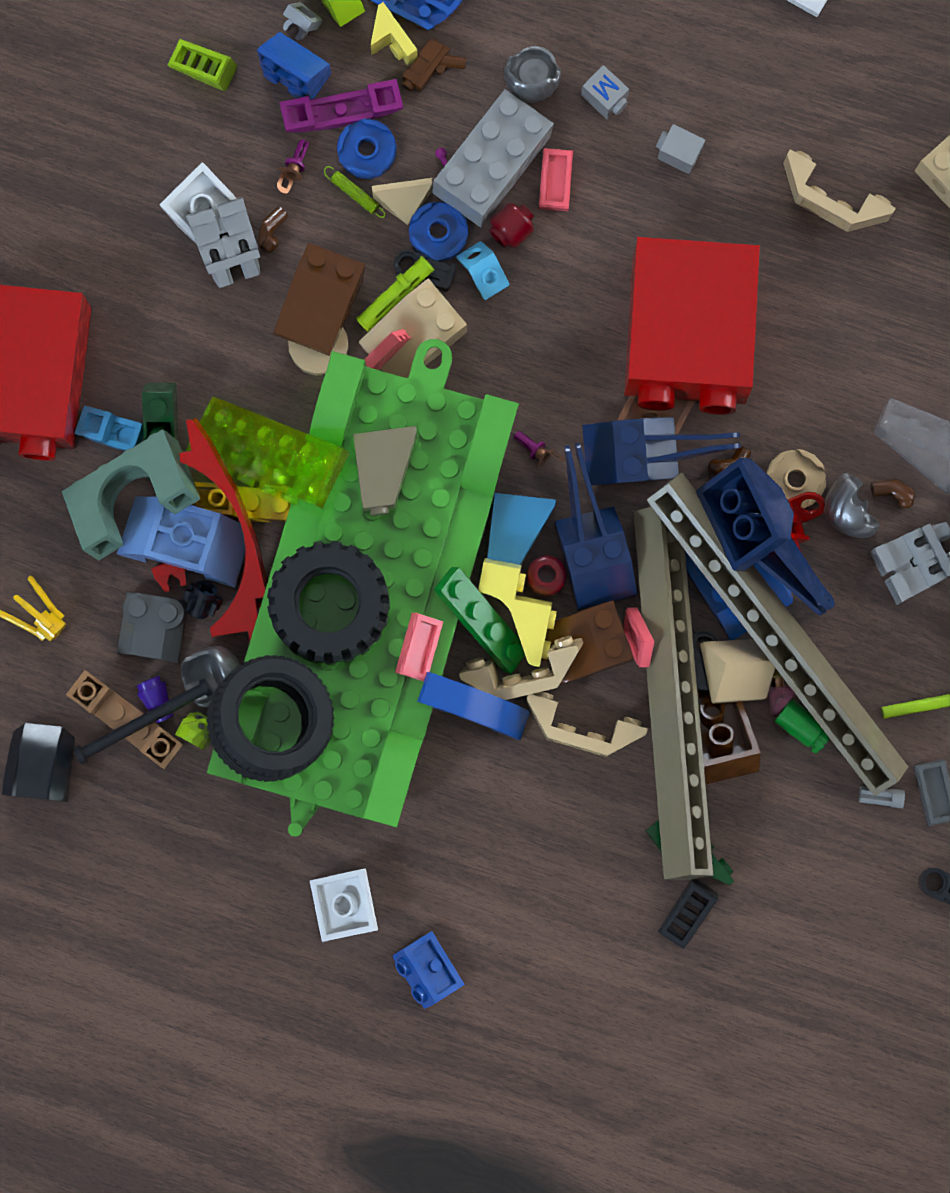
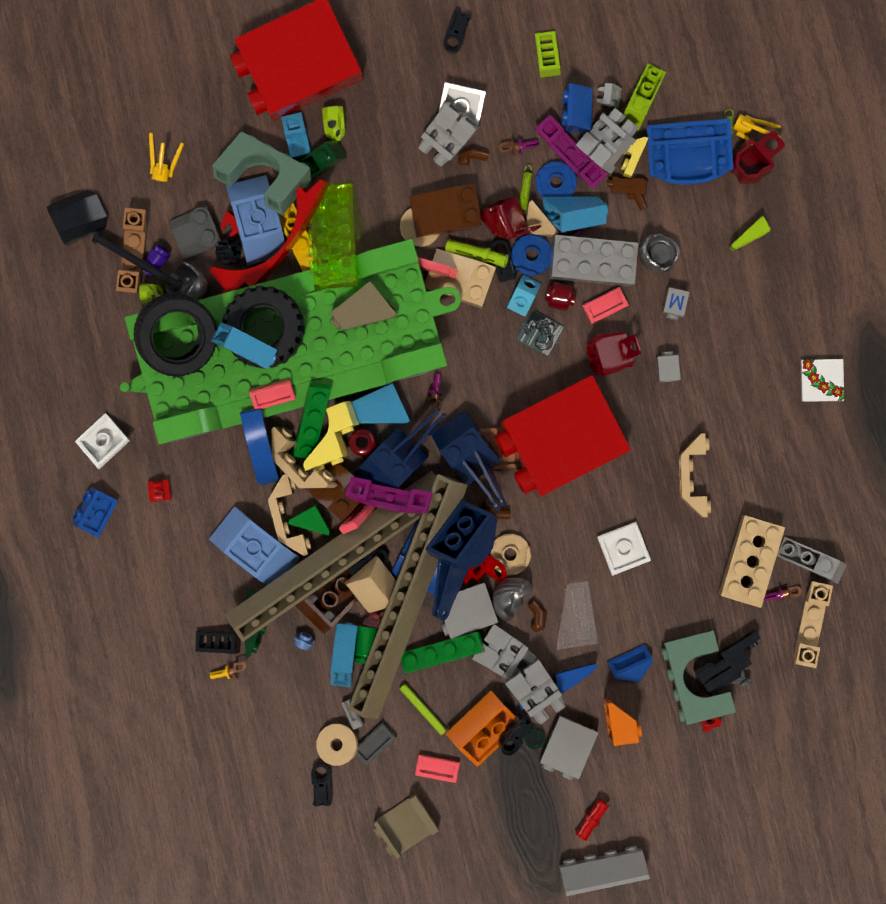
camera: 55 degrees right, 5 degrees up
(104, 156) = (456, 30): none -> black piece
(122, 372) = (334, 122): none -> lime rock
(339, 635) = (244, 345): none -> dark azure slope
(355, 49) = (608, 140): none -> light grey hips
(375, 232) = (506, 219): none -> dark red piece
(418, 144) = (574, 212): none -> dark azure slope
(451, 871) = (159, 491): none -> red tile
(541, 279) = (540, 333): none -> piece
(596, 793) = (253, 547): none -> medium blue slope
(605, 699) = (311, 520): none -> green slope
(621, 201) = (611, 352): none -> dark red piece
(639, 580) = (388, 498): none -> magenta slope
(734, 921) = (228, 671): none -> piece
(752, 801) = (303, 640): none -> medium blue plate
(801, 761) = (343, 655): none -> dark azure slope
(842, 568) = (470, 612): none -> light grey brick
(871, 336) = (623, 548): none -> white tile
(872, 634) = (442, 652): none -> green plate
(910, 857) = (325, 747): none -> tan tile

